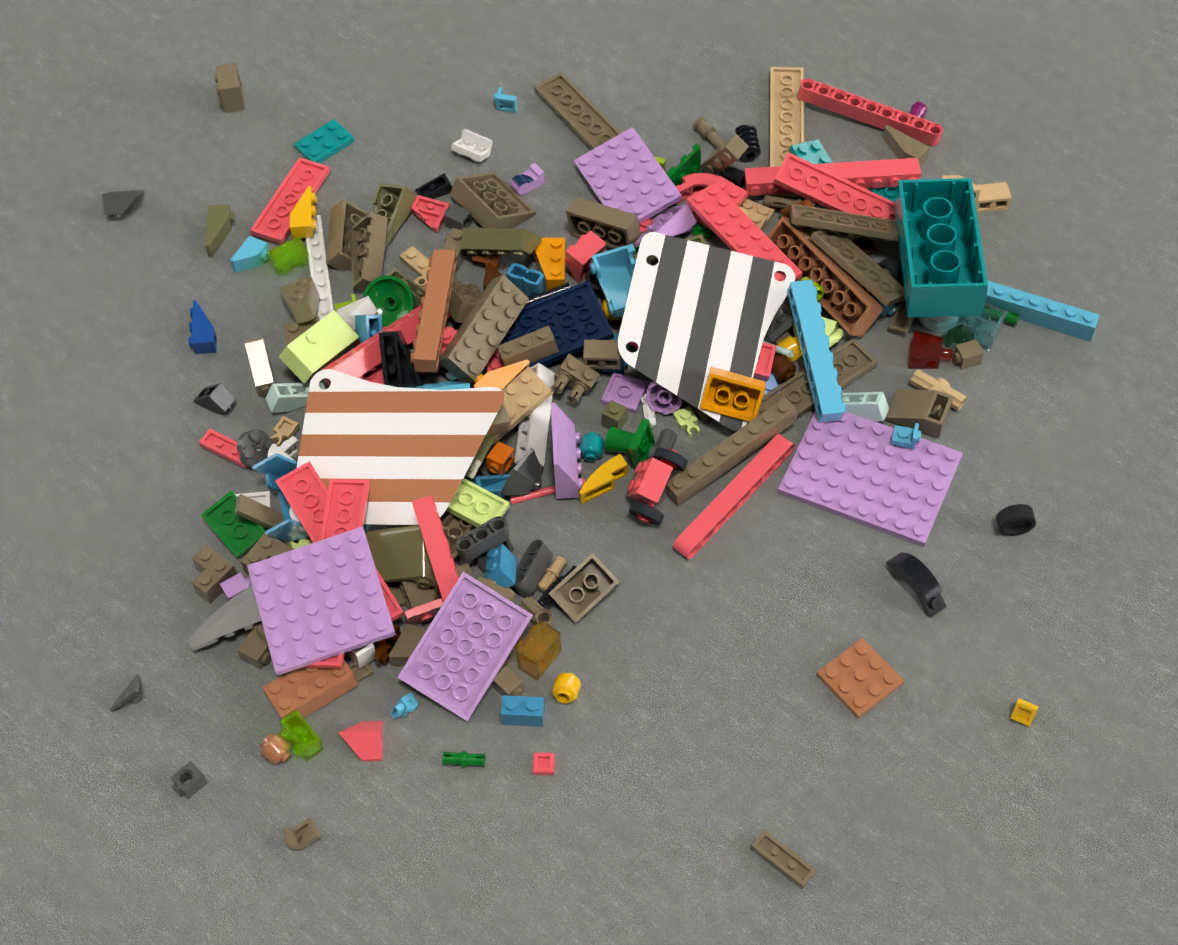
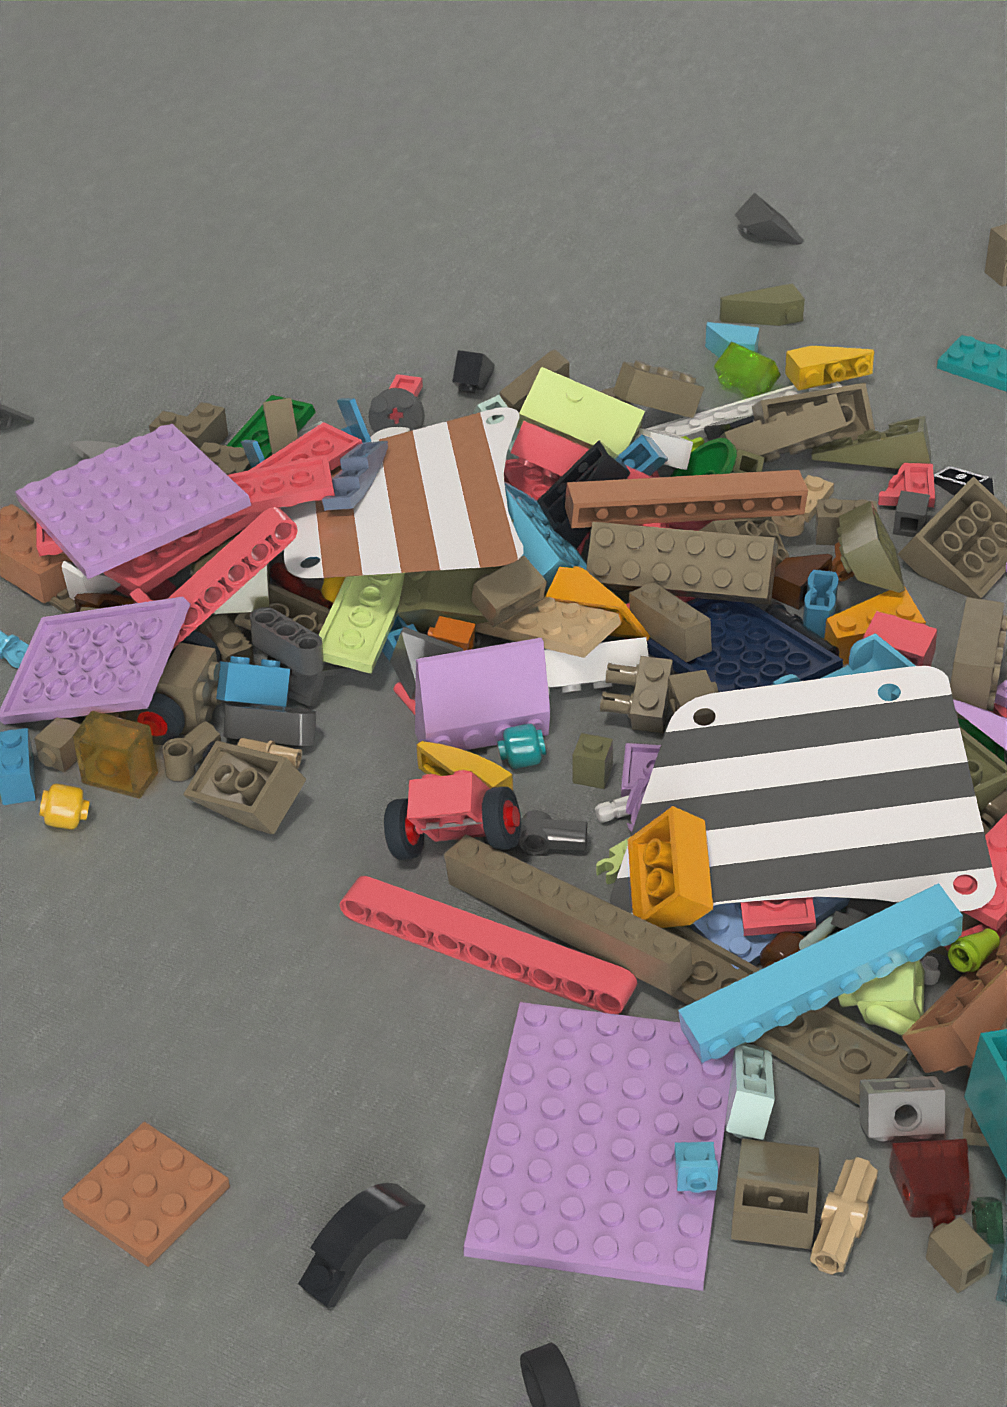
camera: 75 degrees right, 15 degrees down
(203, 334) = (585, 335): blue slope -> none
(275, 219) = (892, 357): coral plate -> none
(344, 279) = (716, 429): none -> black slope
(344, 468) = (357, 475): none -> sand blue slope
(635, 444) = (541, 781): green plant -> none
(887, 348) = (884, 1096): none -> light grey brick

